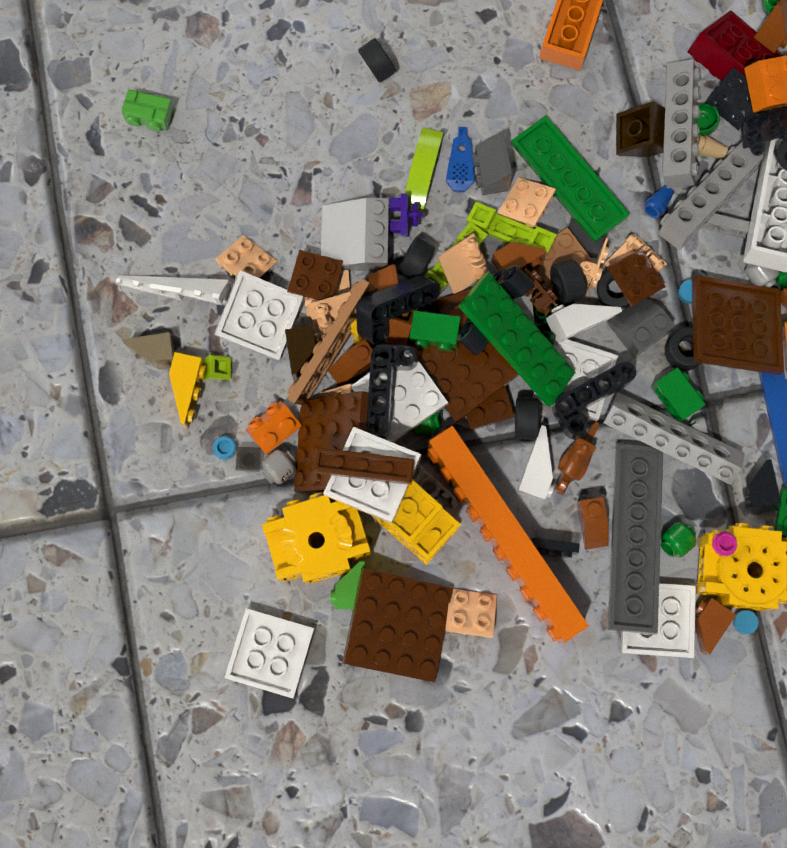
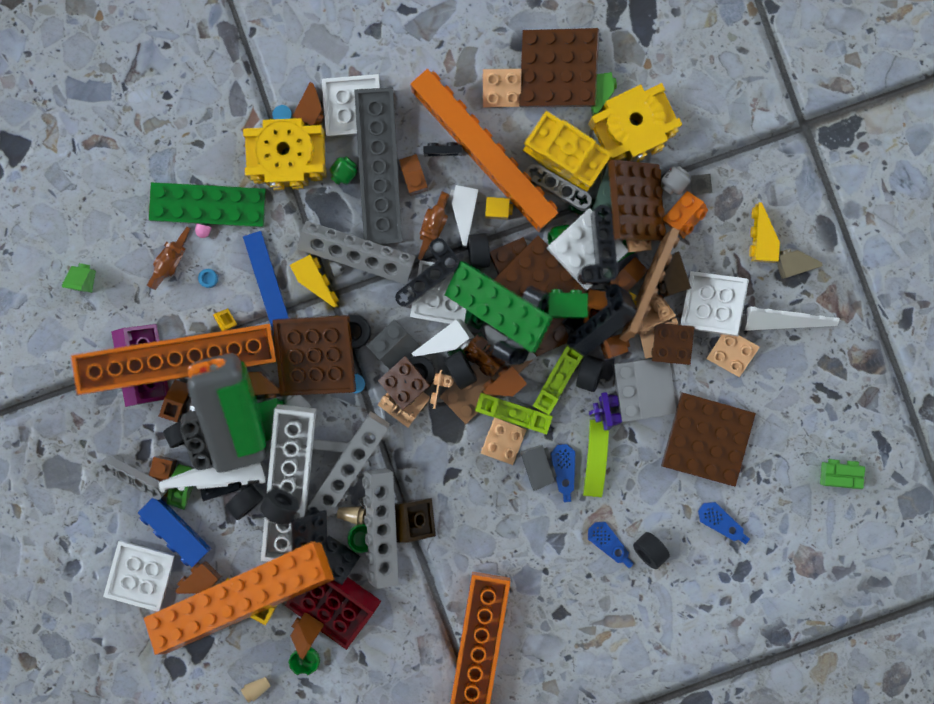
camera: 175 degrees right, 10 degrees up
(217, 367) = (739, 258): lime slope -> none
(224, 448) = (722, 192): dark azure tile -> none
(269, 653) = (656, 32): white plate -> none
(289, 79) = (724, 524): none -> blue piece
(291, 171) = (708, 439): none -> reddish brown plate
(363, 466) = (610, 171): reddish brown tile -> none
(371, 496) = (601, 167): white plate -> none
(424, 76) = (611, 545): none -> blue piece
(463, 264) = (548, 374): light nougat hinge -> none
(497, 466) = (498, 208): none -> yellow brick
(575, 182) = (469, 468): green plate -> none
(657, 203) = (390, 457): blue cone -> none
(678, 395) = (355, 290): green brick -> none
(724, 544) = (310, 163): dark pink plate -> none
(730, 417) = (308, 274): none -> yellow slope
(763, 491) = (279, 221): black slope -> none

